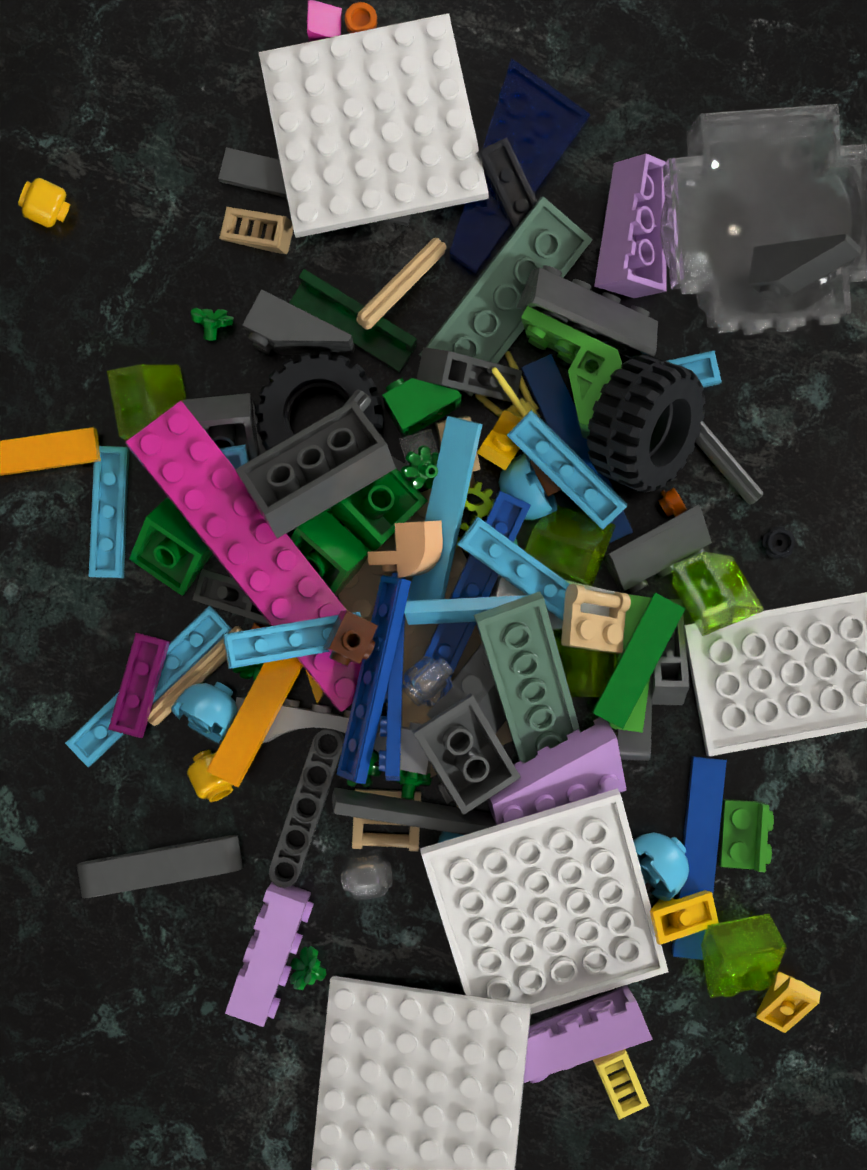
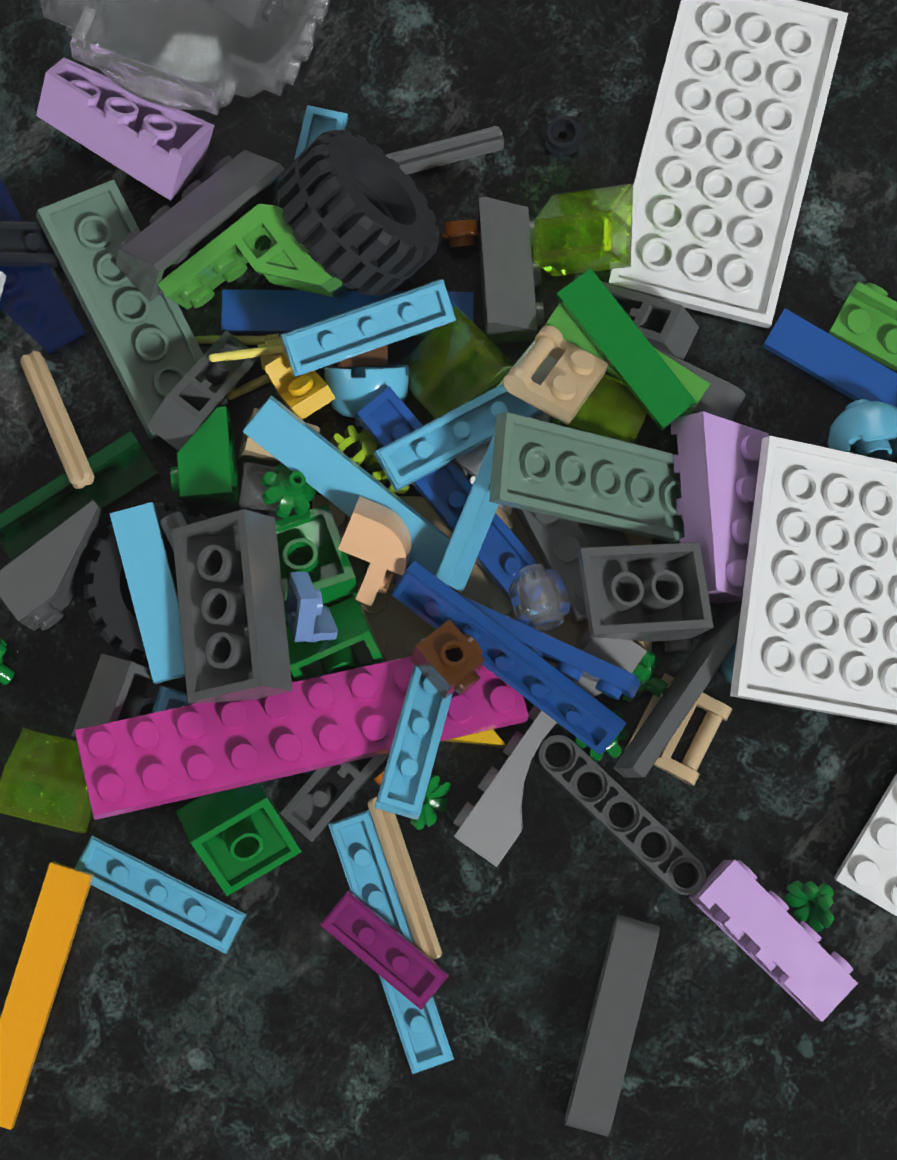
camera: 65 degrees left, 5 degrees down
(204, 783) = (532, 912): yellow head -> none
(208, 709) = (455, 879): medium azure cylinder -> none
(254, 720) = (491, 825): light orange tile -> none
(308, 404) = (151, 589): none -> medium azure tile
(338, 521) = (305, 611): none -> medium blue bracket
(367, 877) = (735, 782): clear head -> none

